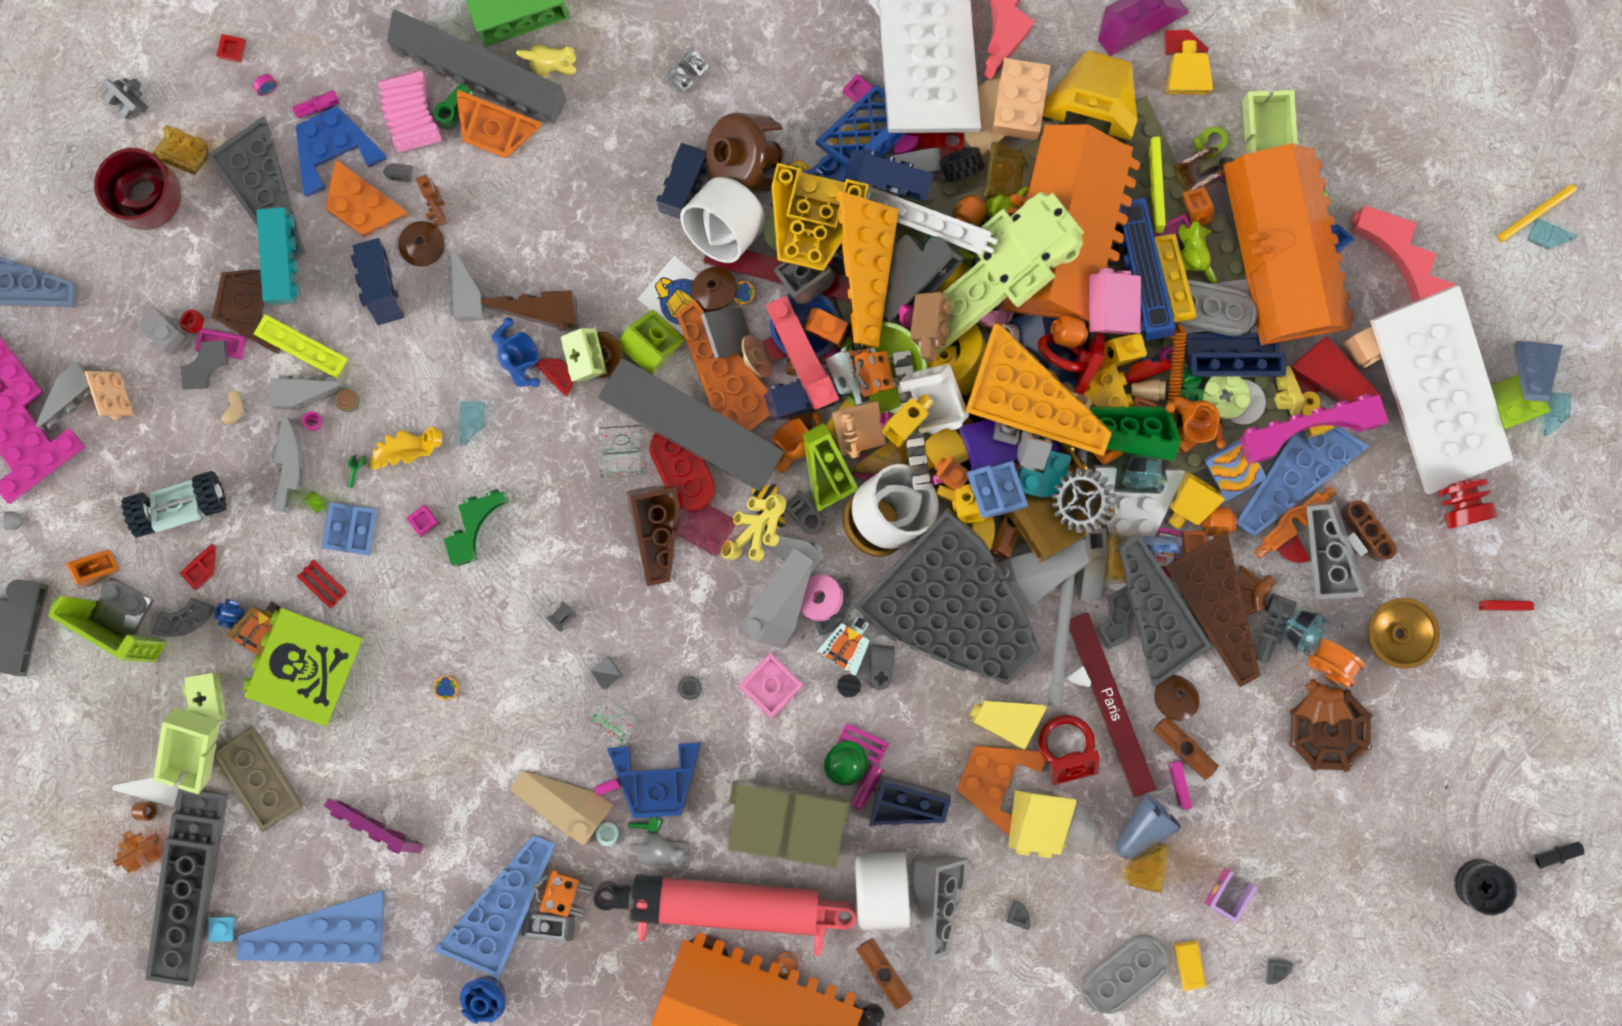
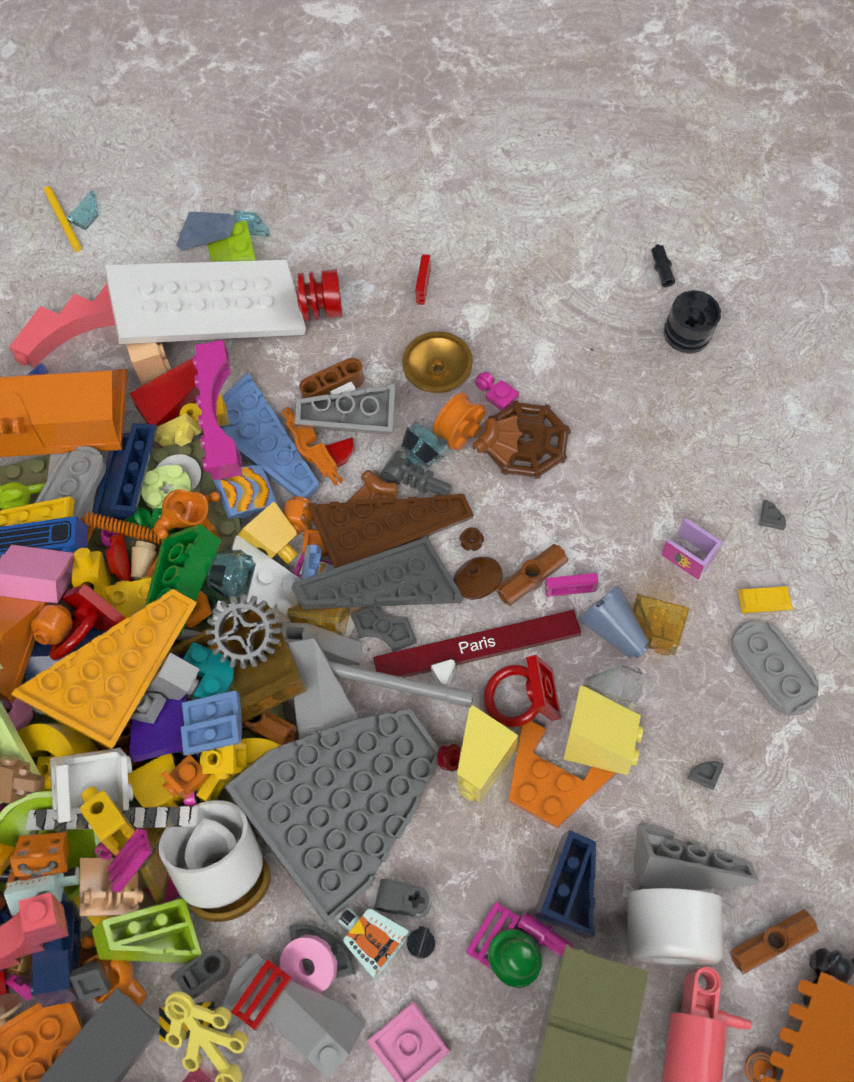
camera: 80 degrees left, 20 degrees down
(773, 557) = (245, 1017): none -> red tile
(776, 373) = (19, 986): none -> dark pink tile
(786, 429) = (90, 980): none -> dark grey tile
(881, 442) = (129, 860): none -> dark pink tile
(1004, 691) = (449, 757): none -> dark red tile
(1216, 694) = (472, 533): none -> reddish brown plate
(1378, 699) = (499, 395): none -> dark pink plate

